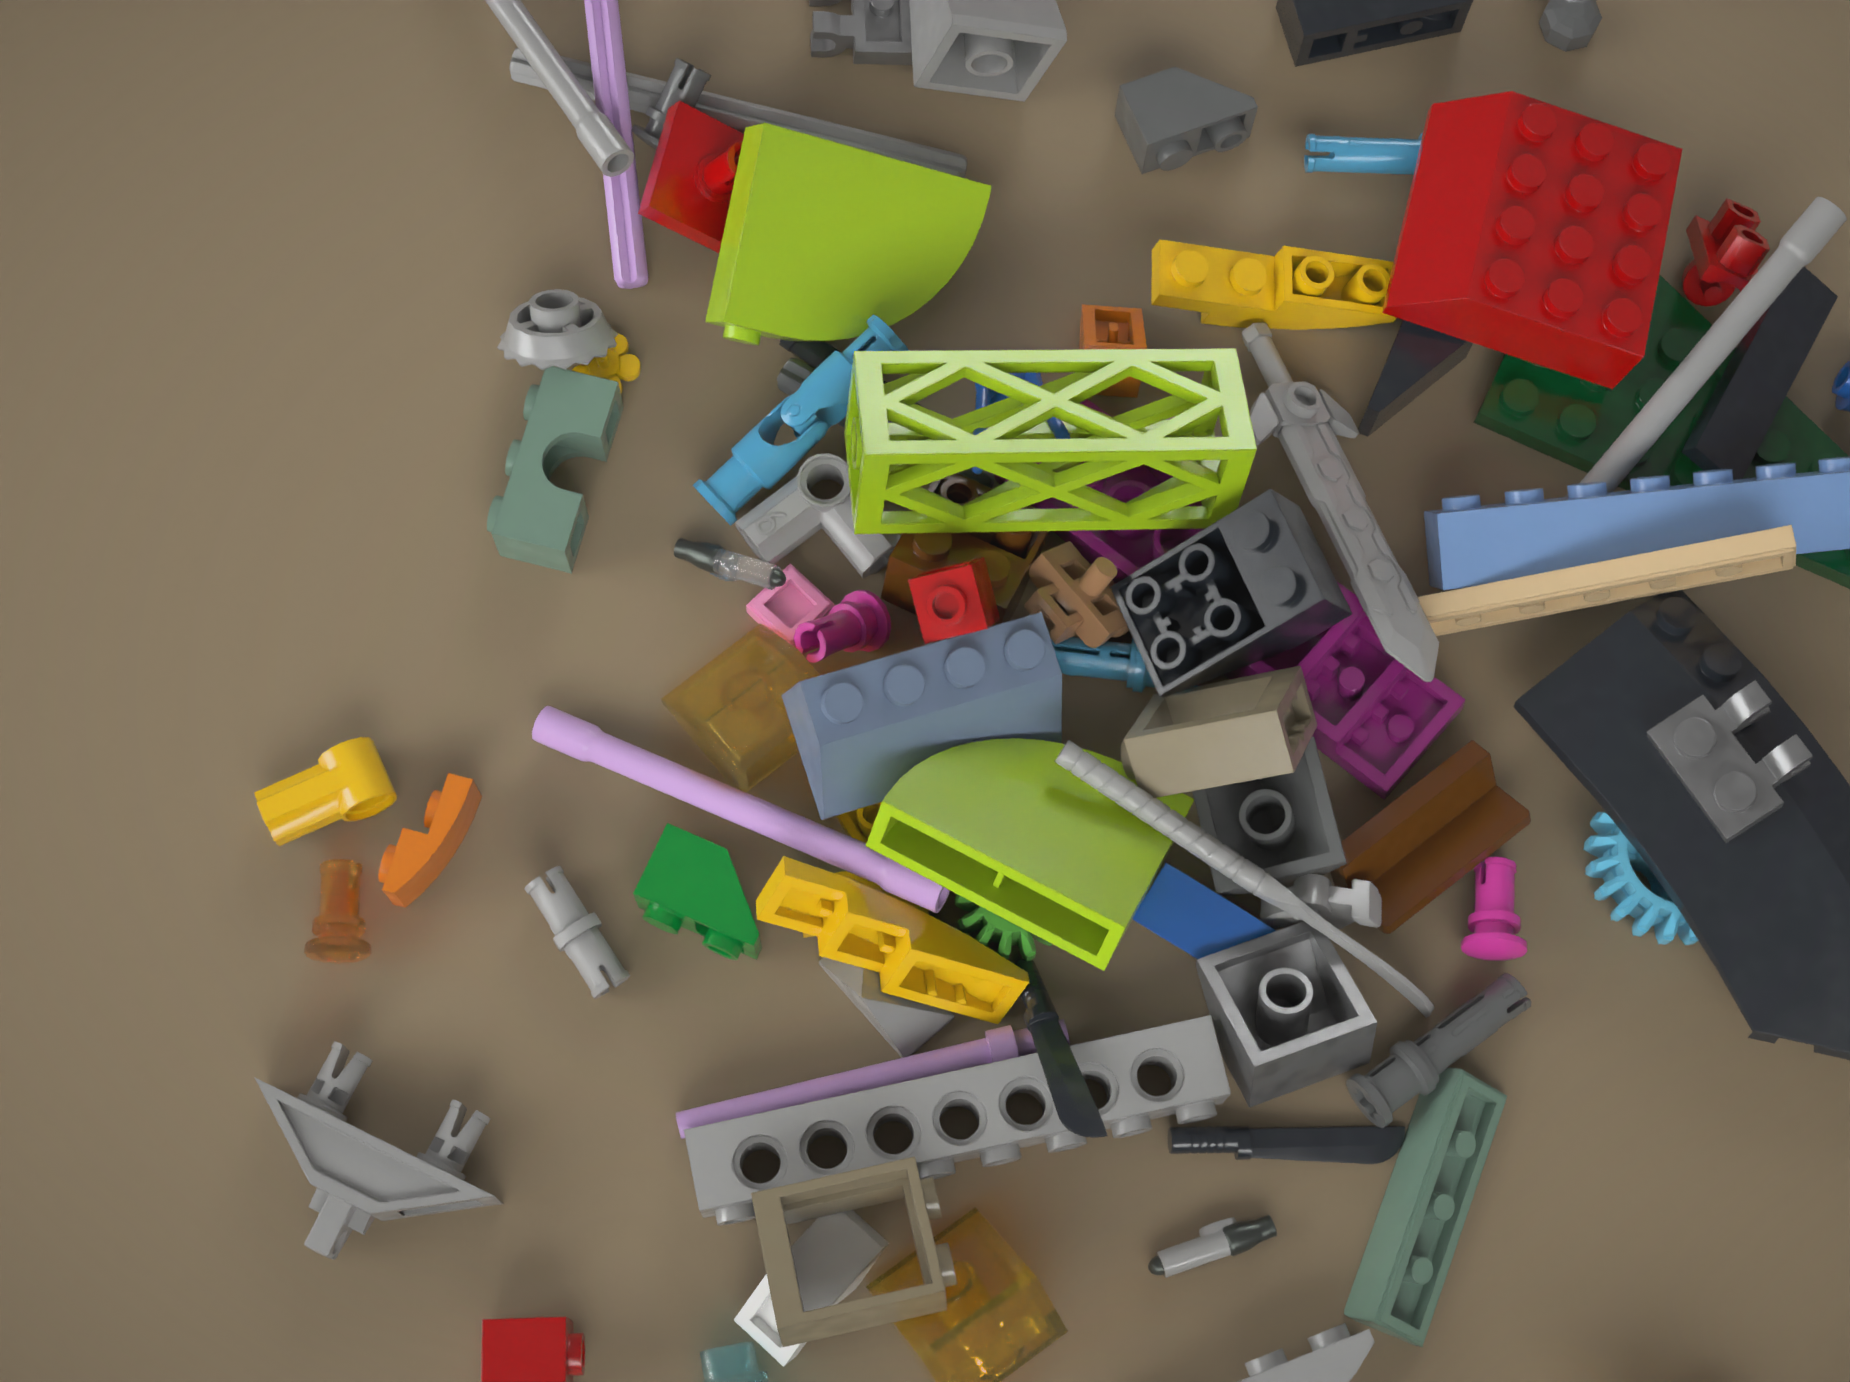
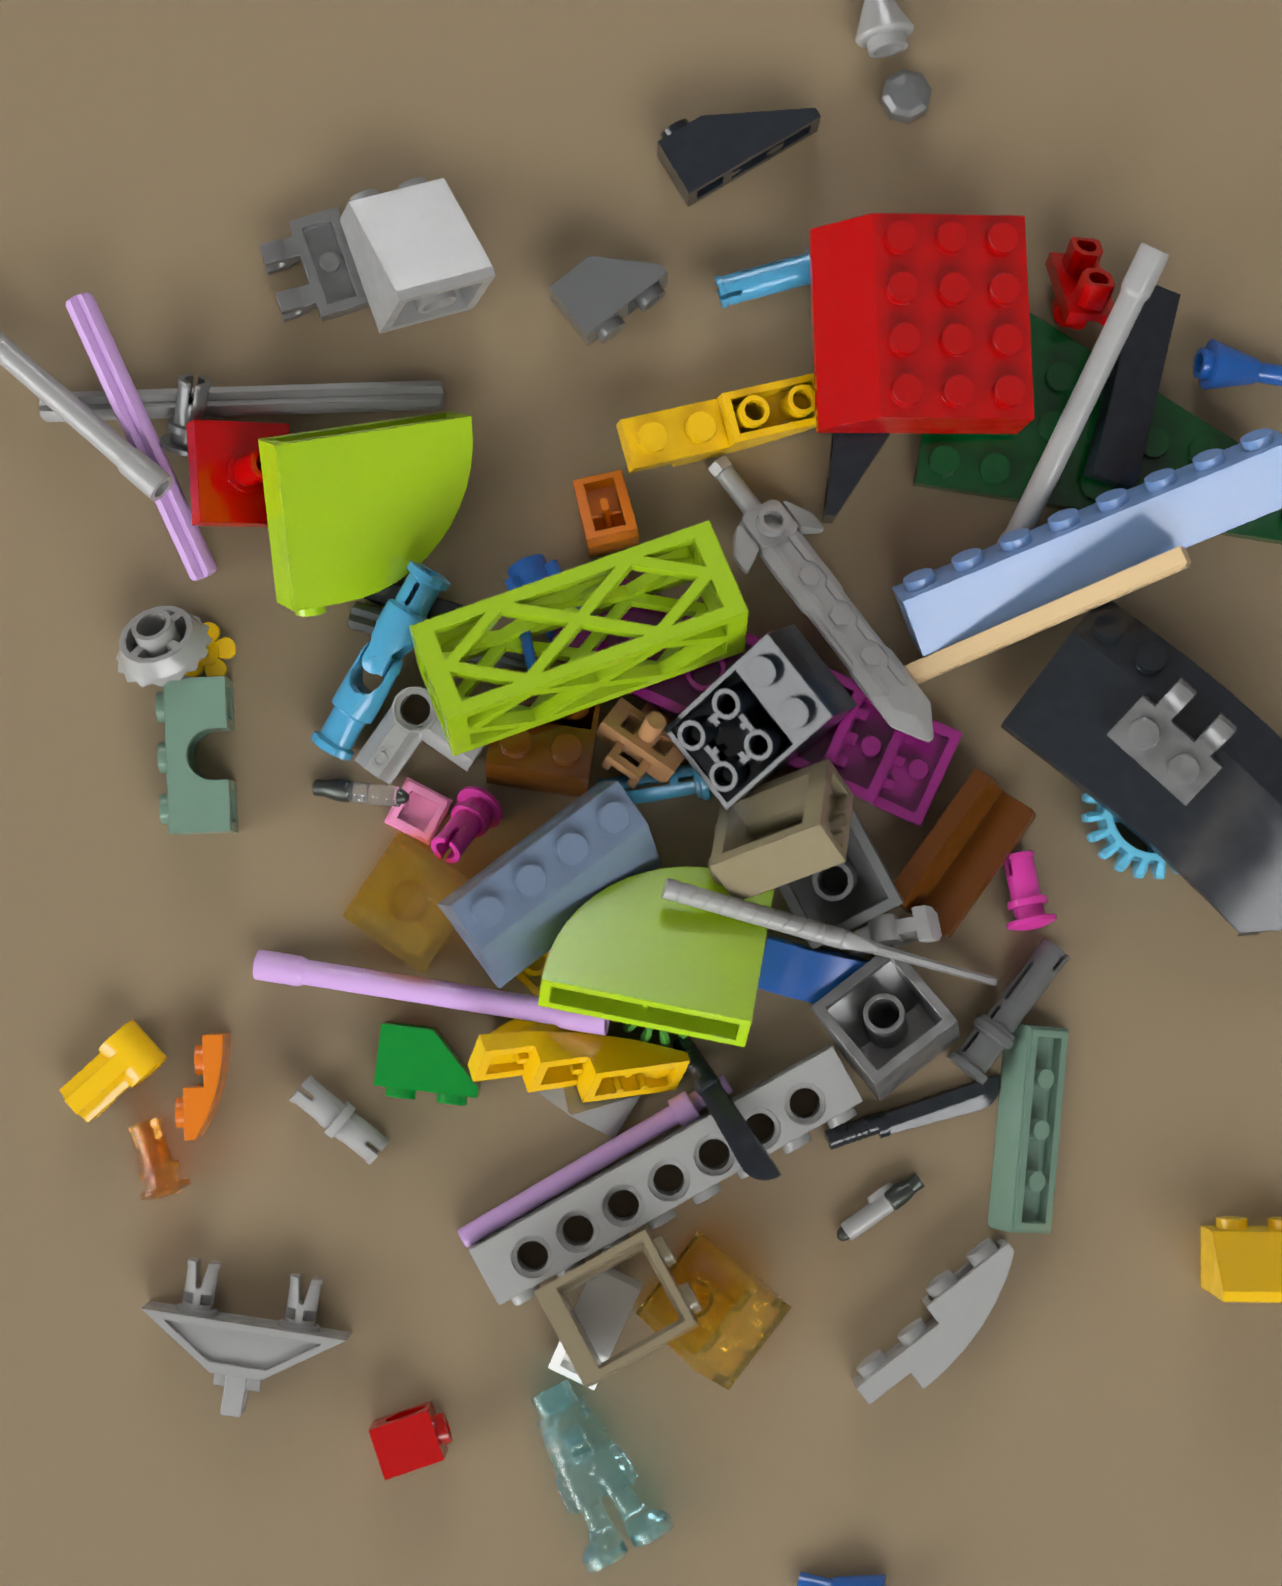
camera: 15 degrees left, 15 degrees up
(954, 600) = (547, 792): red brick -> none

